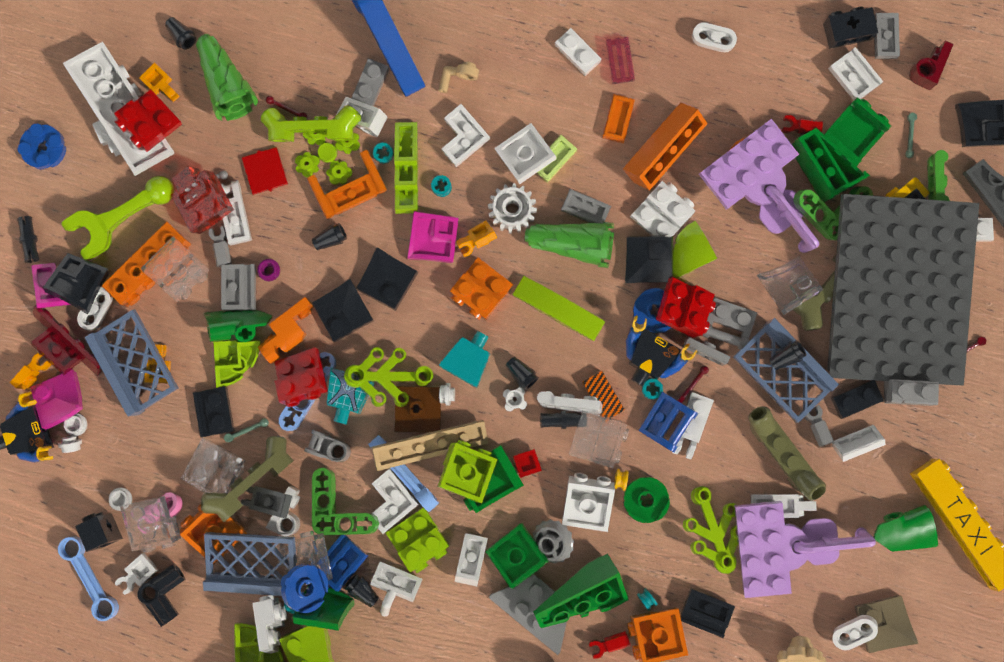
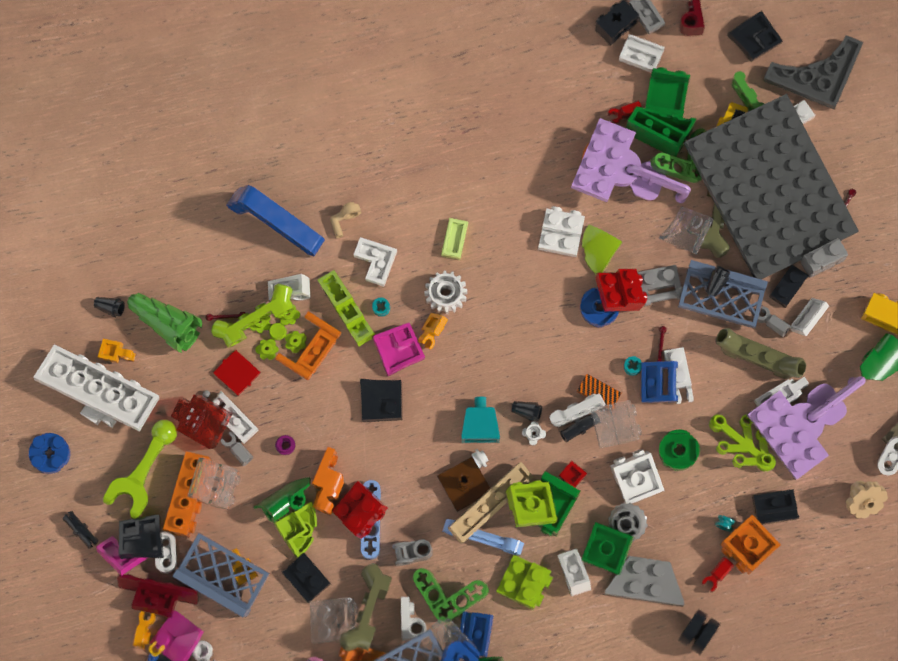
camera: 30 degrees left, 10 degrees down
(147, 120) = (126, 383): red plate -> none
(230, 437) = (330, 591): sand green hinge -> none
(238, 287) = (269, 471): light grey plate -> none
(268, 501) = (393, 616): dark grey hinge -> none
(330, 237) = (318, 393): black cone -> none
(342, 311) = (361, 443): black plate -> none
(345, 397) = (403, 501): teal torso -> none
(361, 590) = (504, 646): black cone -> none
(370, 82) = (280, 260): light grey plate -> none
(380, 146) = (316, 305): teal bush -> none
(385, 377) = (426, 472): lime plant -> none
(395, 583) = (527, 624): white plate -> none
(398, 500) = (490, 560): white plate -> none
(480, 289) = (458, 366): orange plate -> none
(525, 153) = (431, 246): white plate -> none
(558, 308) = (526, 345): lime slope -> none
(577, 52) = (425, 151): white plate -> none
(584, 242) = (512, 287): bright green cone -> none
(585, 207) = (501, 261): light grey plate -> none
(590, 589) = (678, 540): green wedge -> none
(618, 42) = (451, 127): clear pink tile -> none
(618, 118) = (485, 182): orange tile -> none
(621, 479) = (650, 445): yellow bush -> none
(649, 259) = (571, 271): black plate -> none
(652, 354) = (617, 340): torso -> none
(665, 146) = (533, 182): orange brick -> none
(707, 351) = (655, 313): light grey plate -> none
(714, 35) = (520, 83): white plate -> none
(911, 118) = (701, 61): sand green hinge -> none

